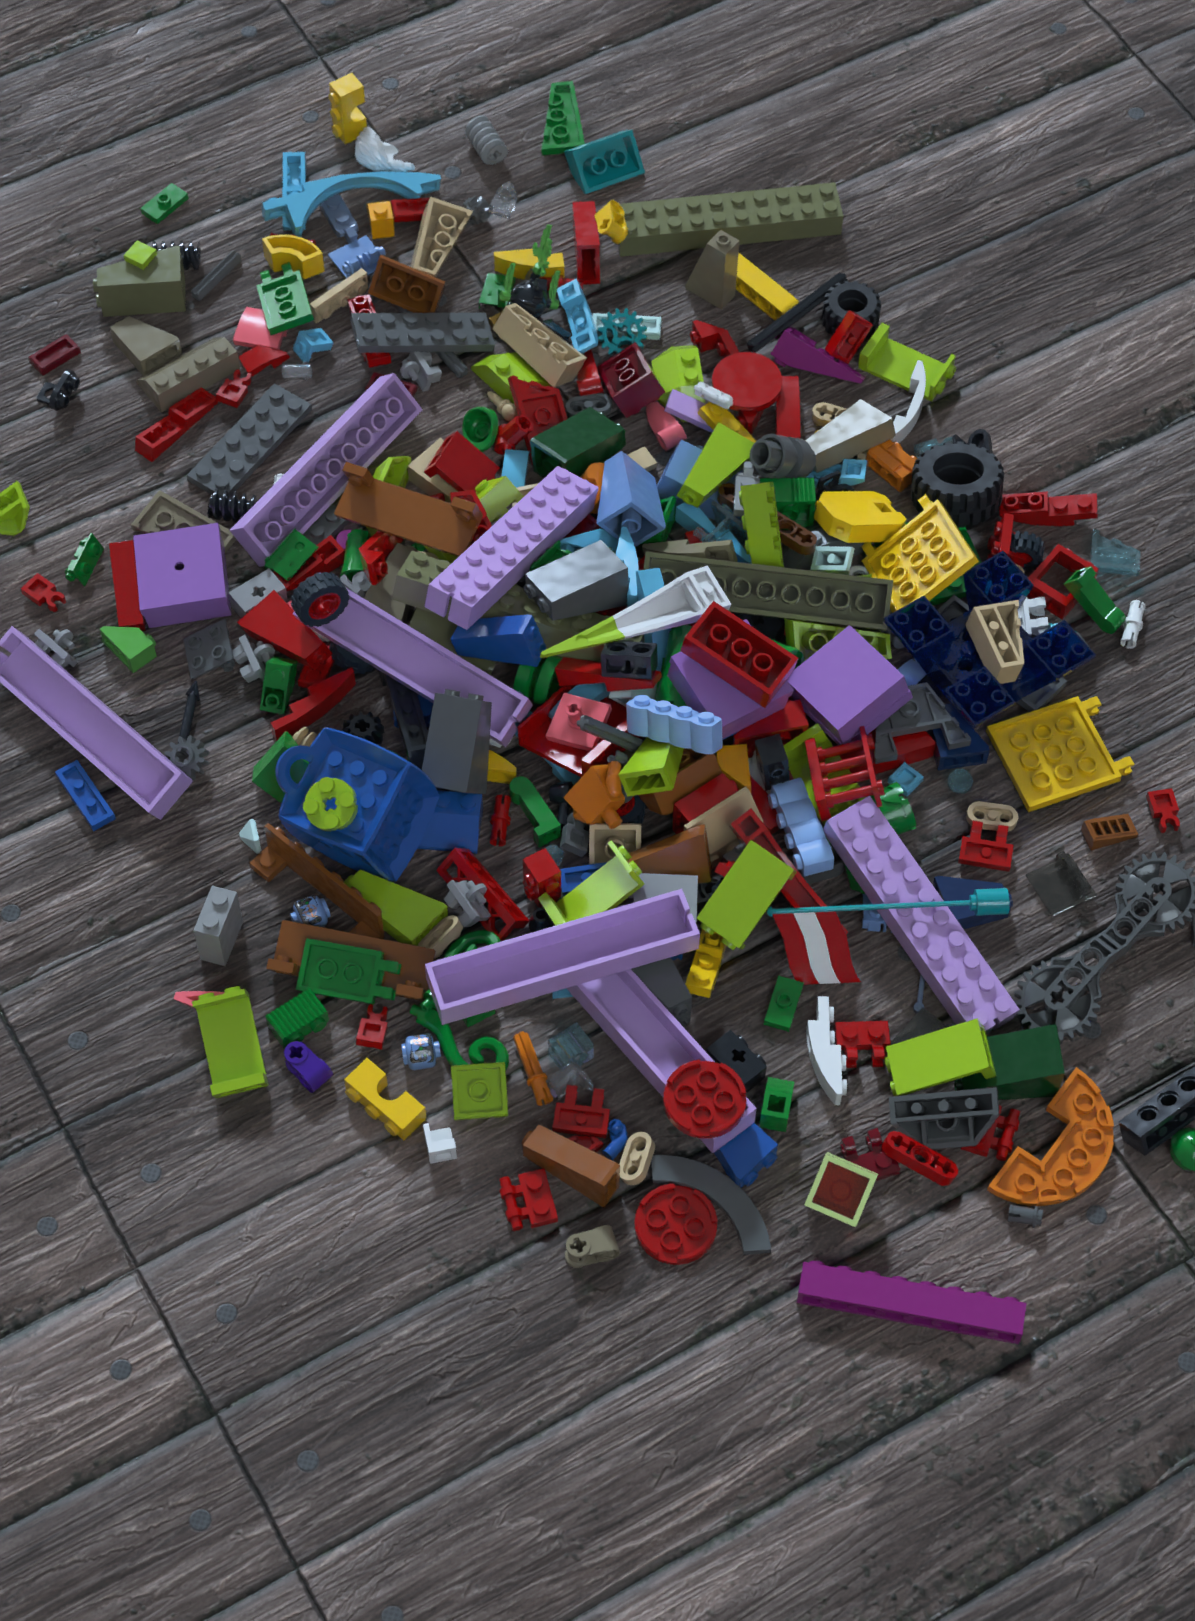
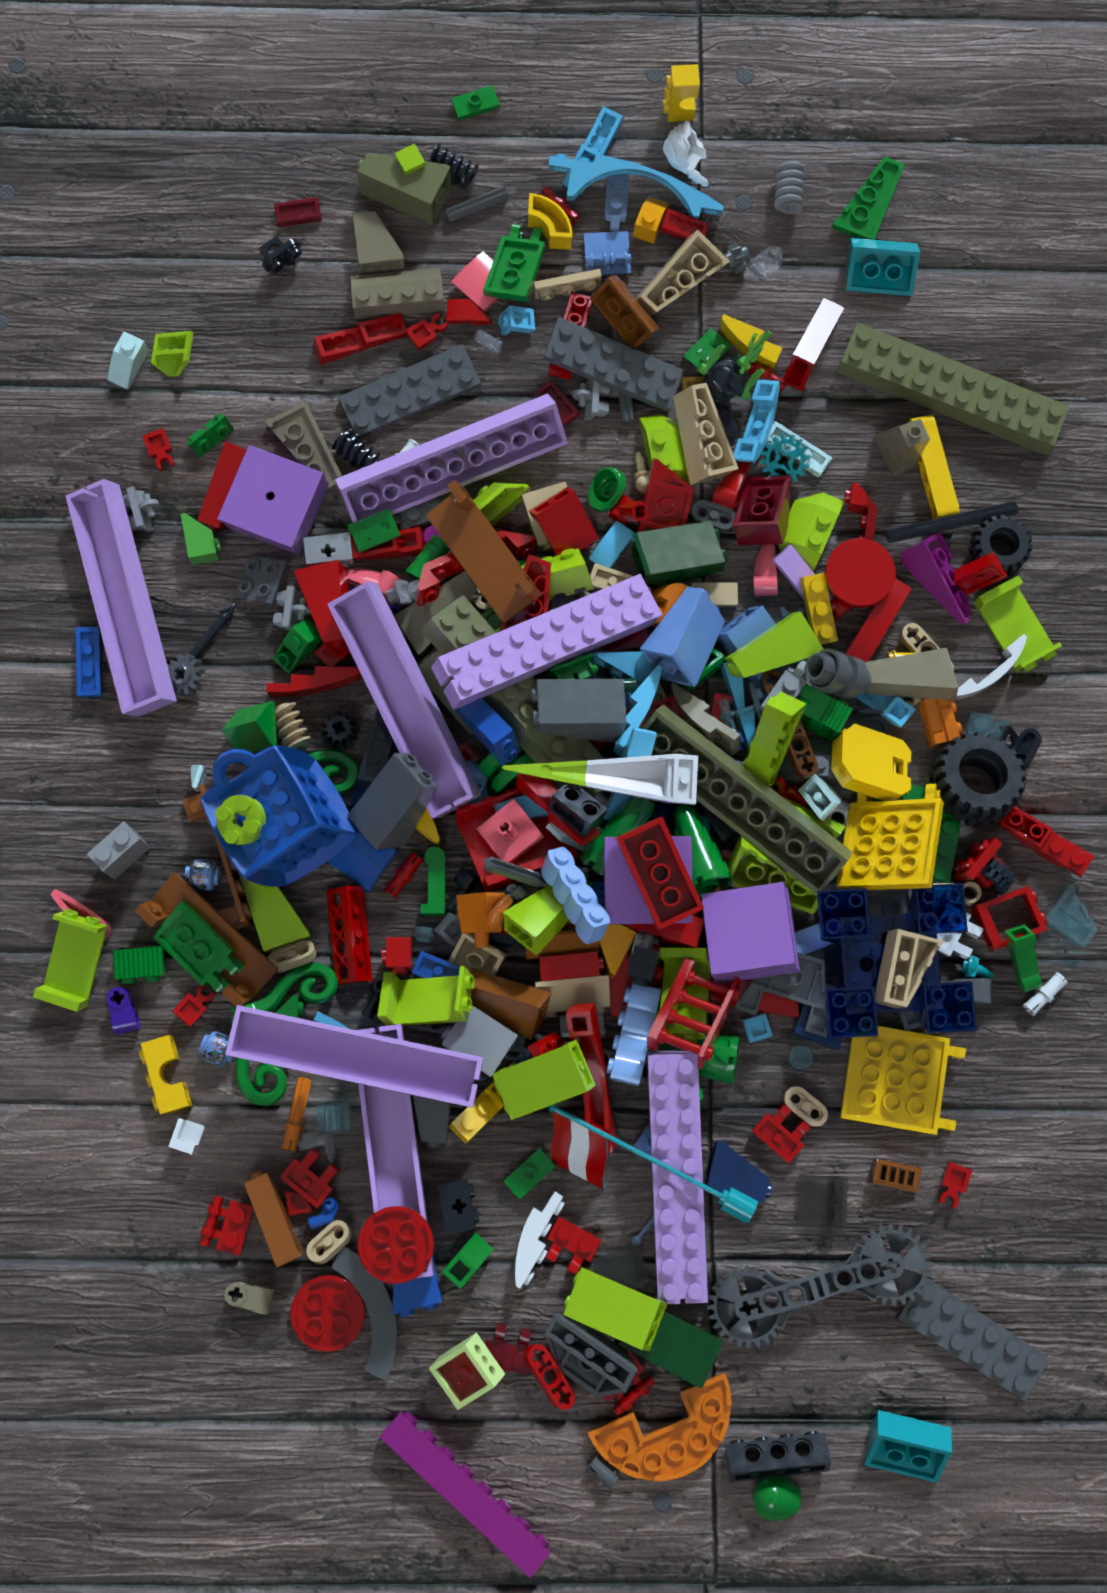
camera: 25 degrees right, 20 degrees up
(320, 599) = (349, 610): black wheel -> none
(470, 898) = (329, 940): light grey hips -> none
(479, 1091) = (243, 1111): lime plate -> none
(612, 222) = (842, 342): yellow piece -> none
(713, 395) = (820, 572): white axle -> none

